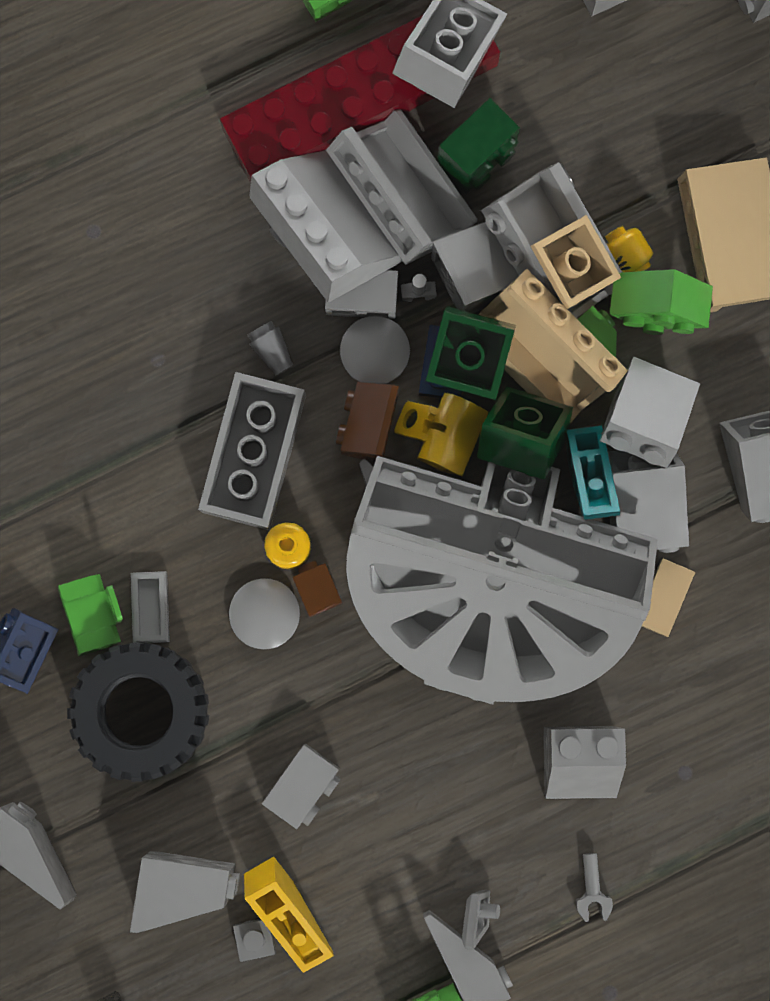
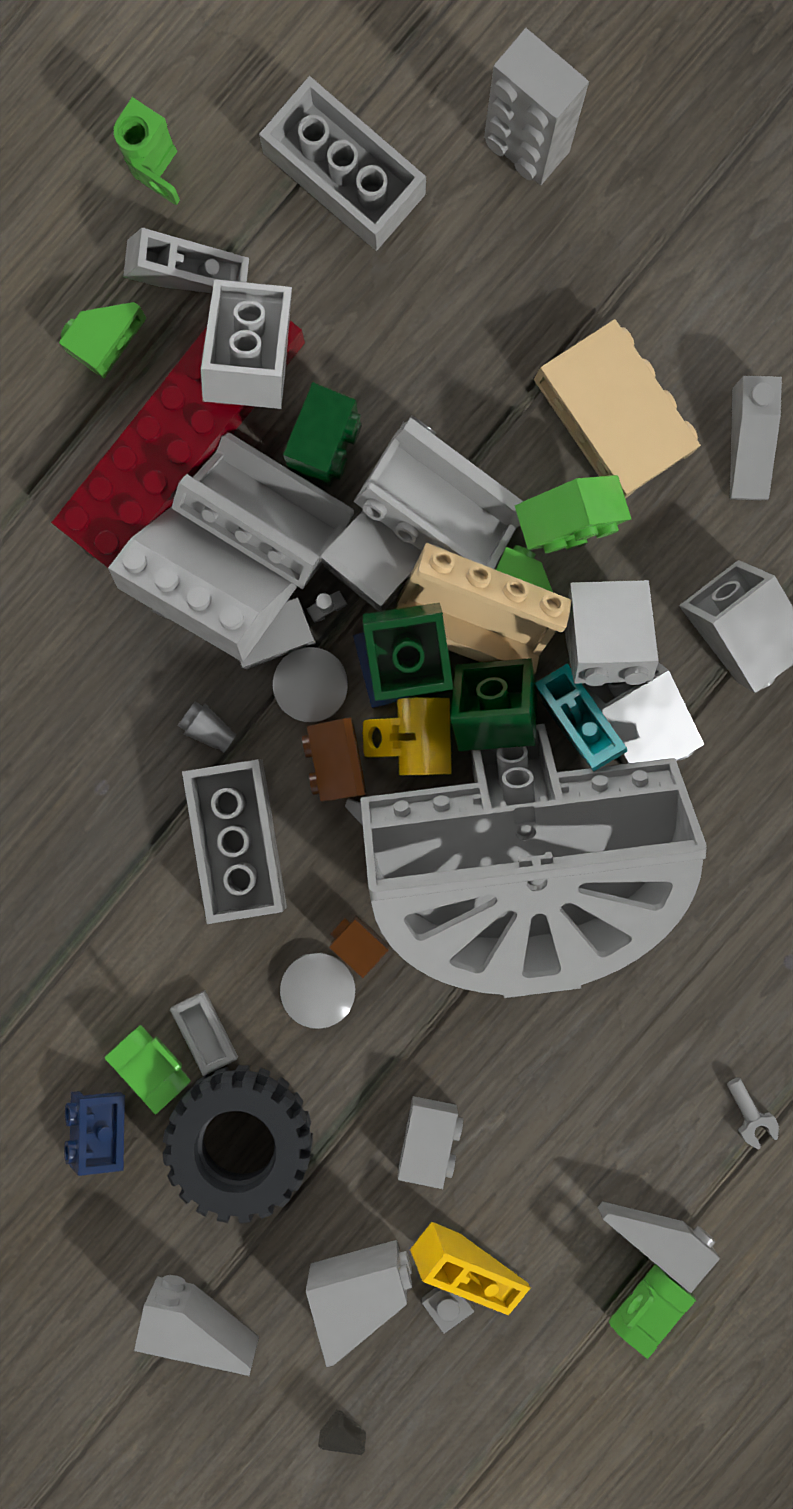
camera: 25 degrees left, 5 degrees up
(287, 545) = (310, 917): yellow head -> none
(477, 917) = (653, 1193): light grey piece -> none
(575, 262) = (472, 513): tan slope -> none
(583, 761) = (690, 995): light grey slope -> none
(629, 249) = (517, 473): yellow head -> none
(668, 594) = (704, 792): tan tile -> none

